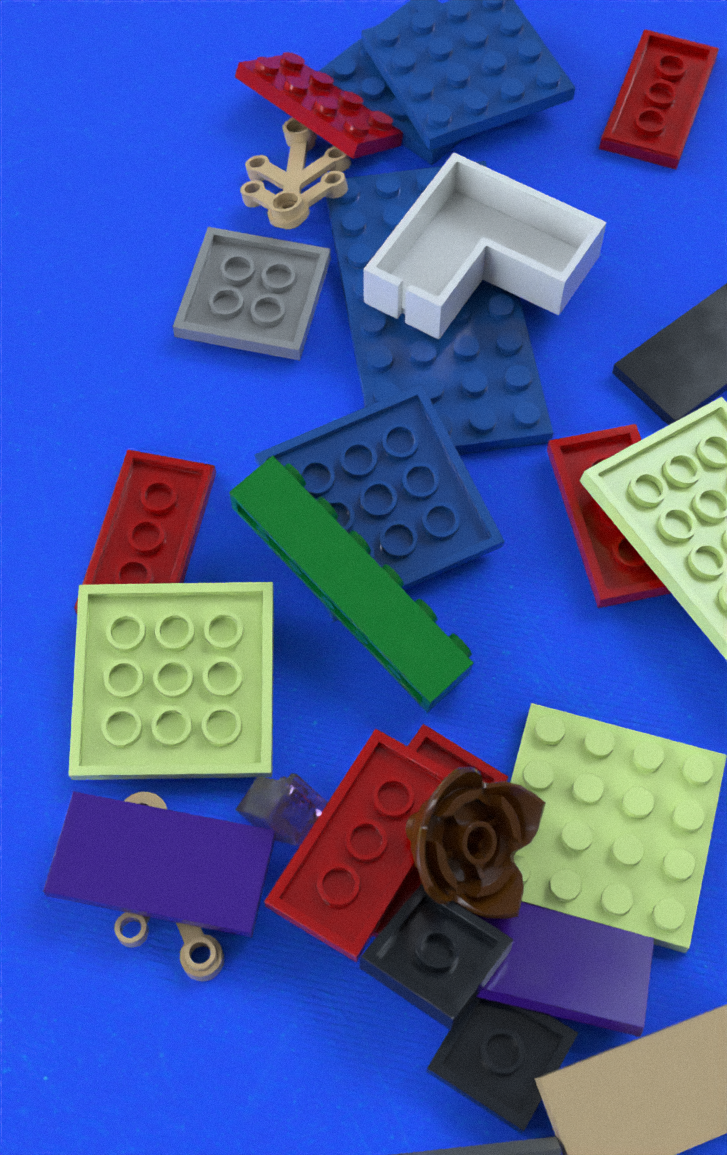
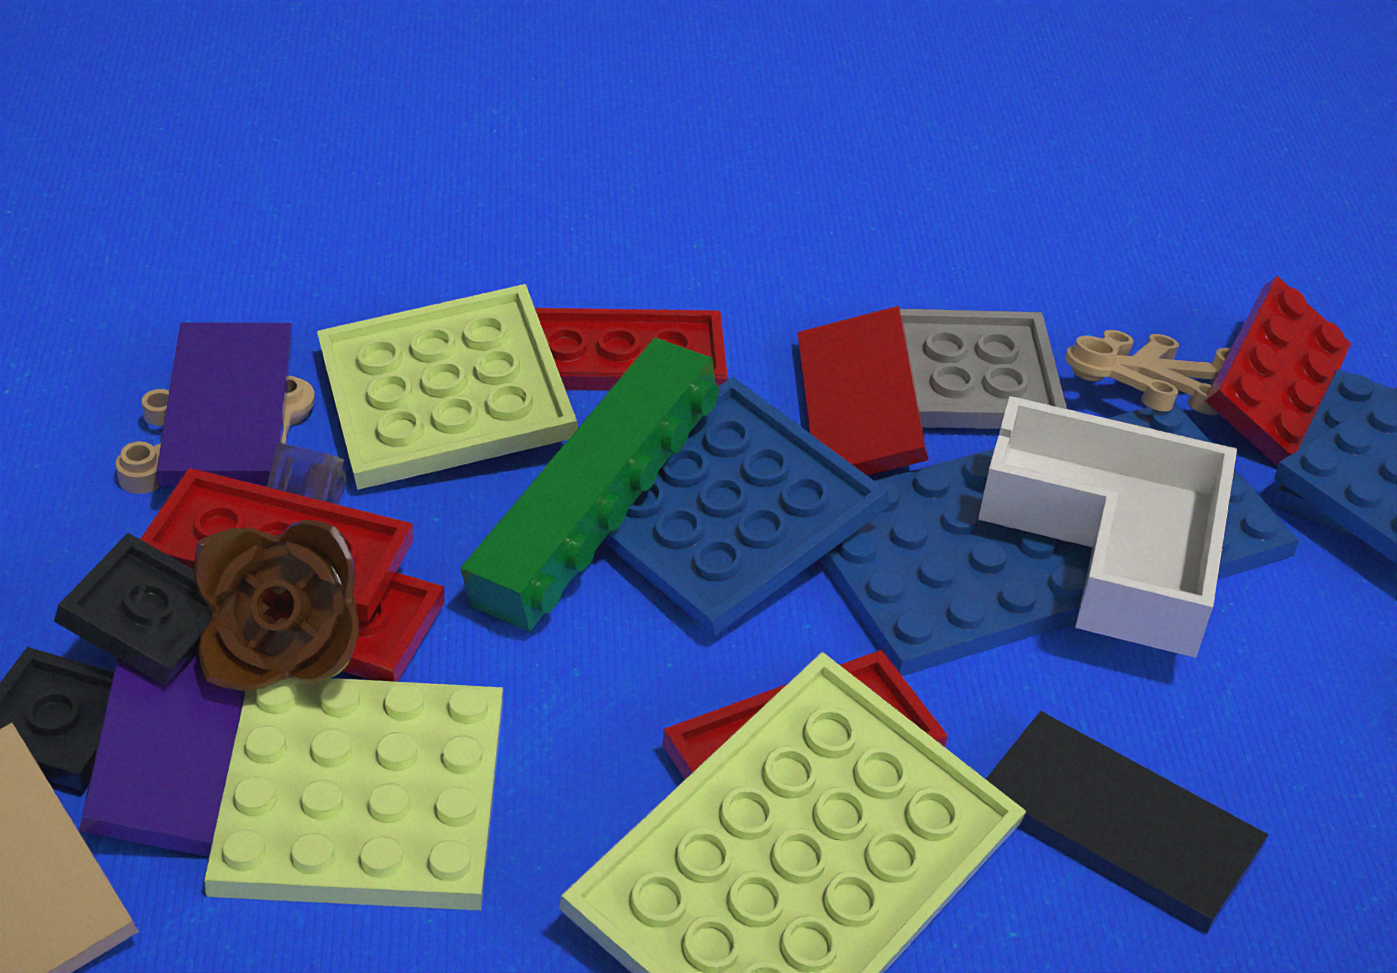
camera: 70 degrees right, 20 degrees down
(266, 374) = (863, 391): none -> red tile

